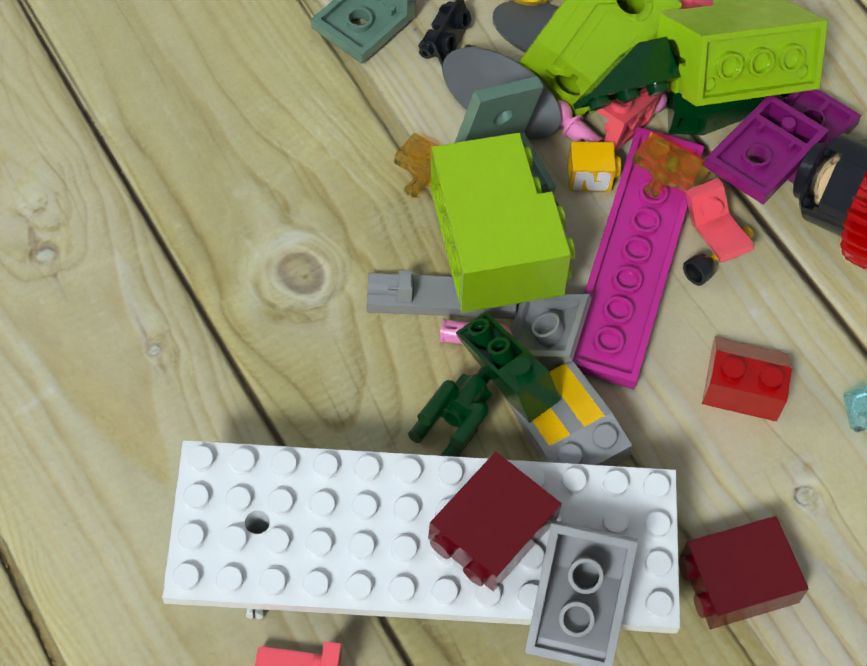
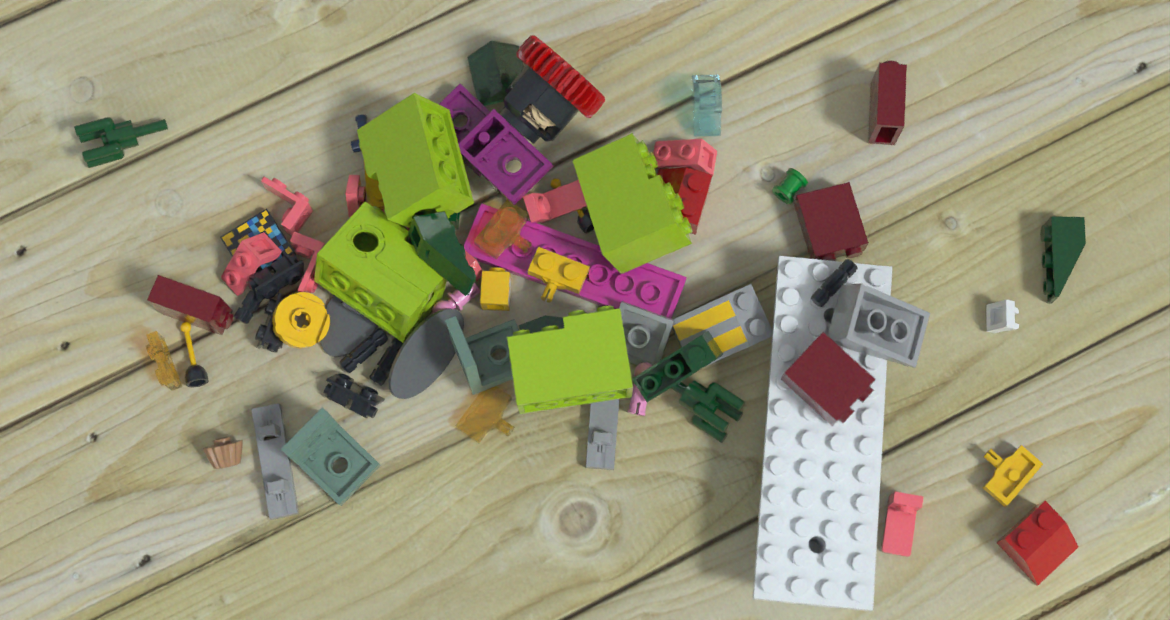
camera: 80 degrees left, 15 degrees up
(499, 38) = (363, 350): none -> black axle
(621, 226) = (557, 272): none -> yellow plate
(648, 538) = (834, 282): none -> black axle
(724, 290) = (630, 204): none -> lime piece
(791, 516) = (790, 186): none -> green bush
(814, 385) = (686, 153): none -> coral bracket

